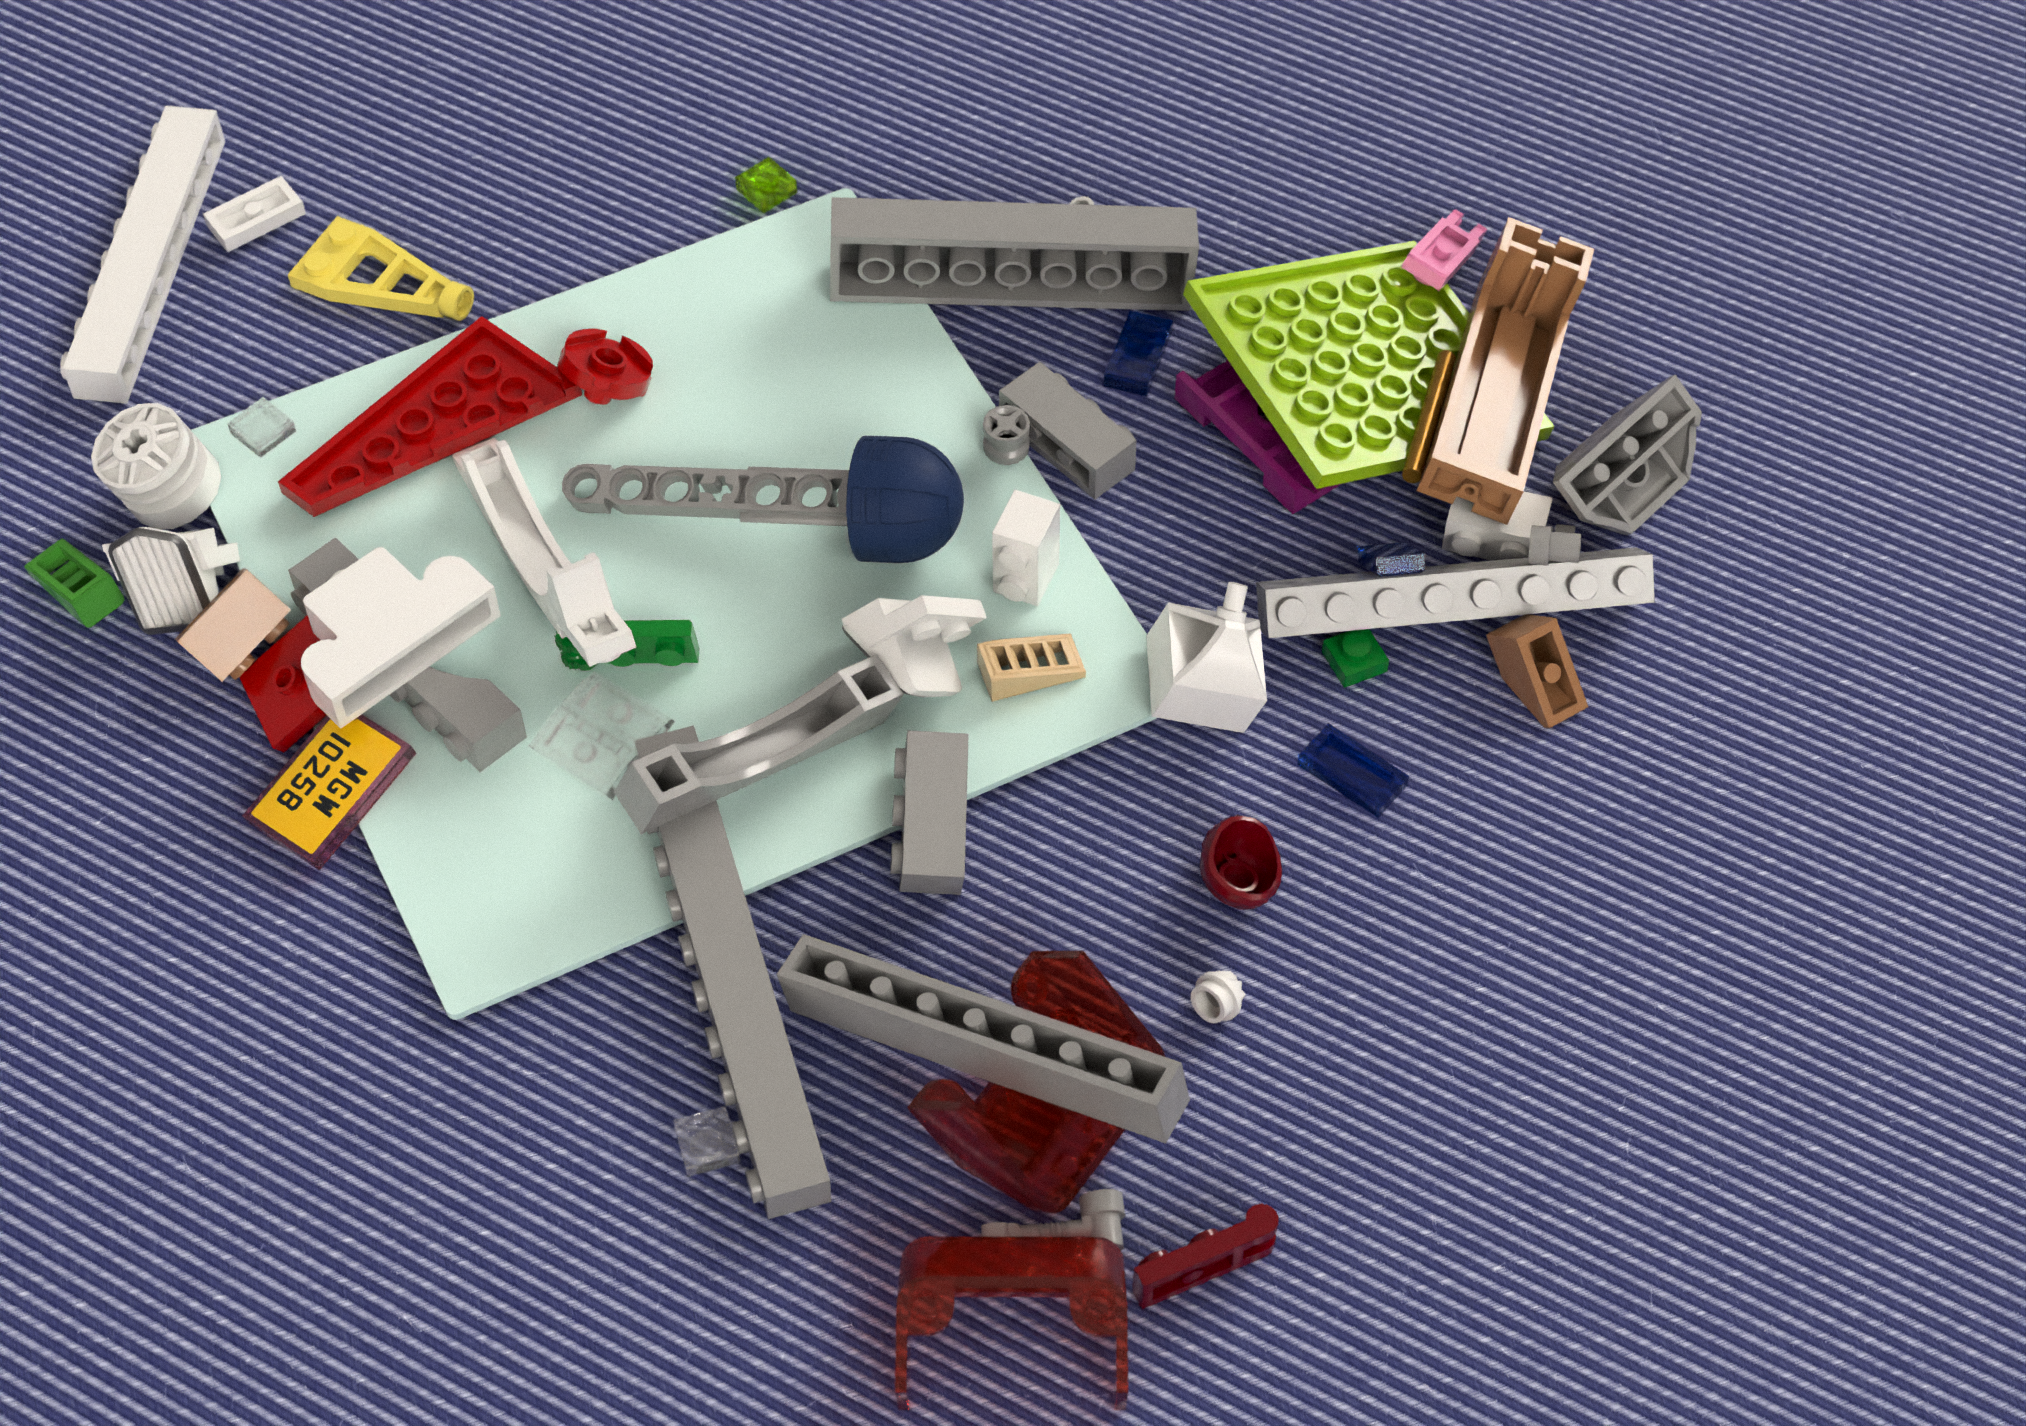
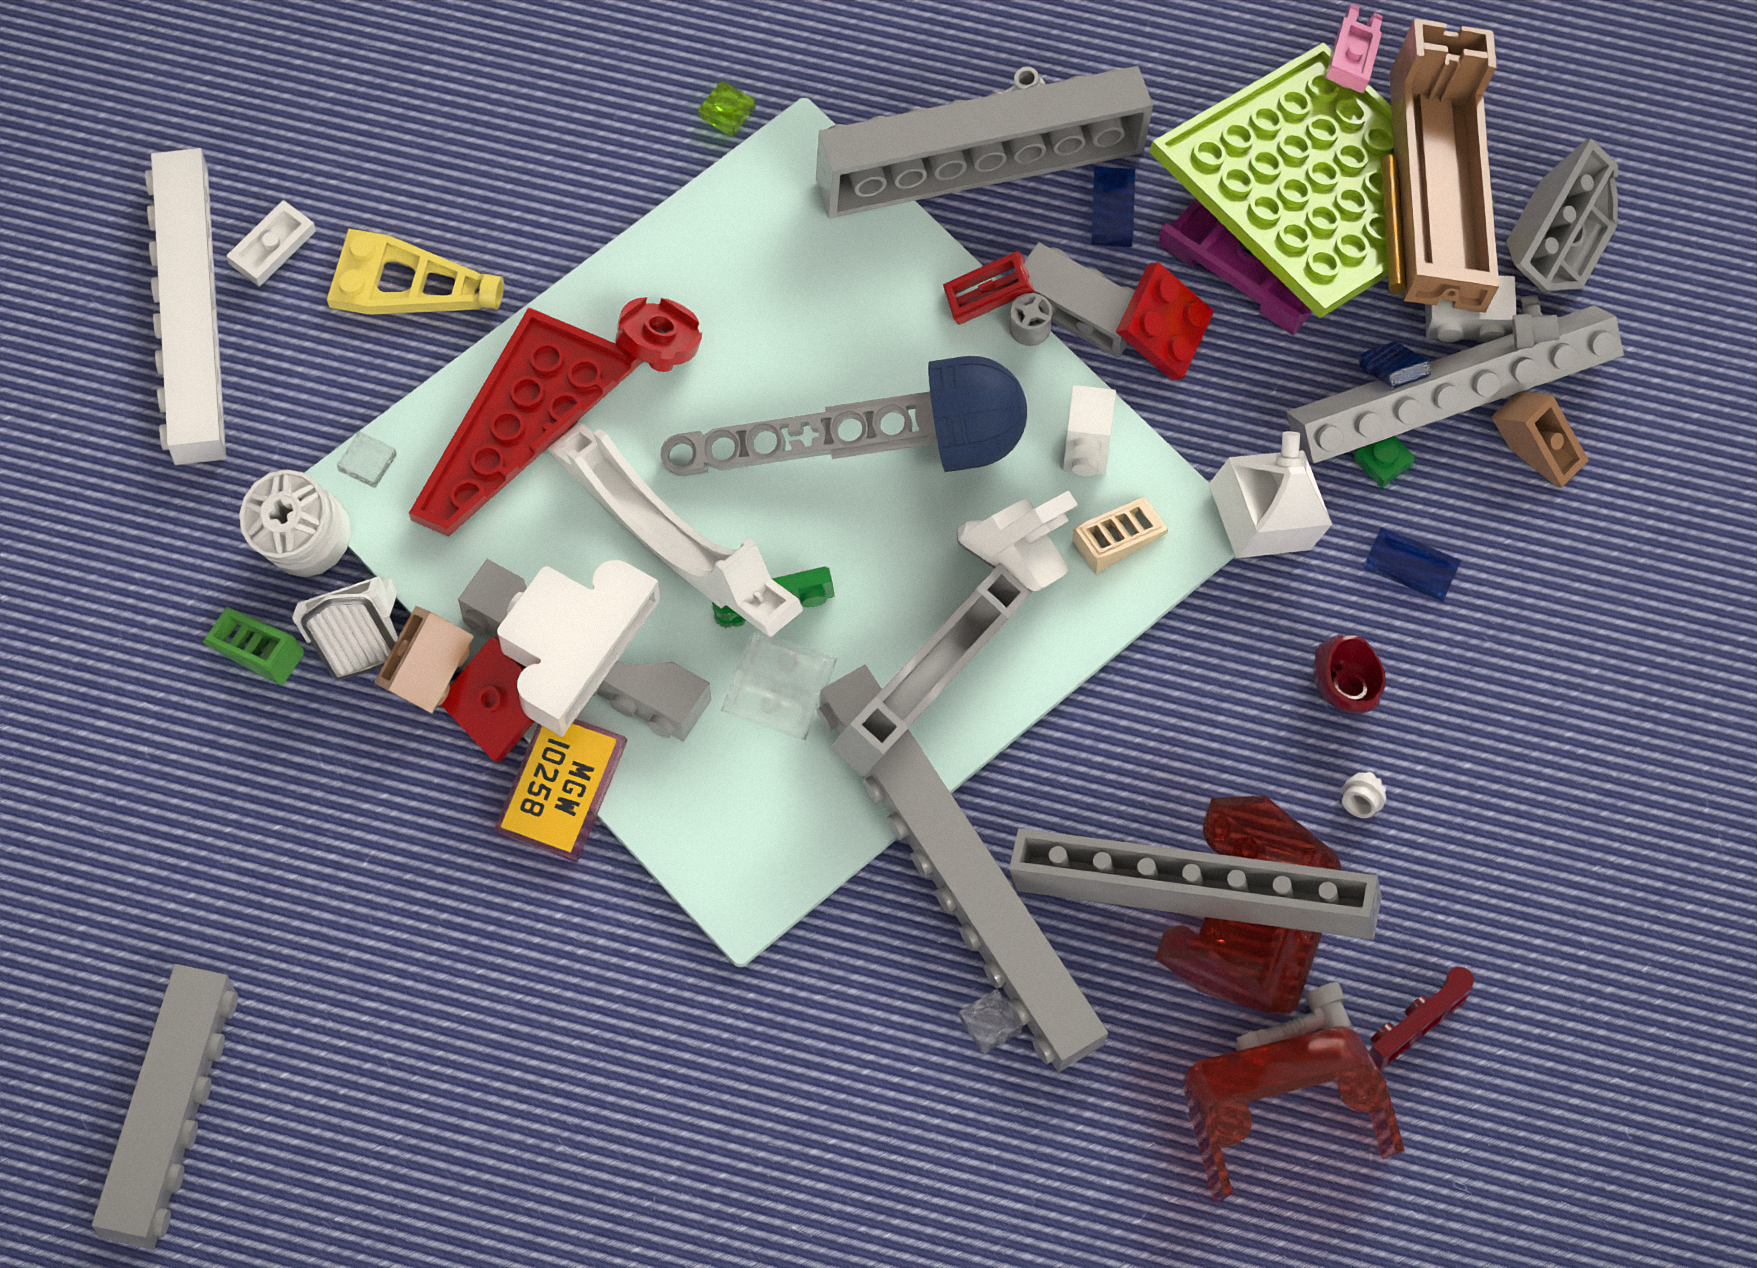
camera: 15 degrees left, 10 degrees up
(931, 812) = (1083, 690): light grey brick -> none
(971, 399) = (991, 293): none -> red tile
(1151, 466) = (1165, 321): none -> red plate

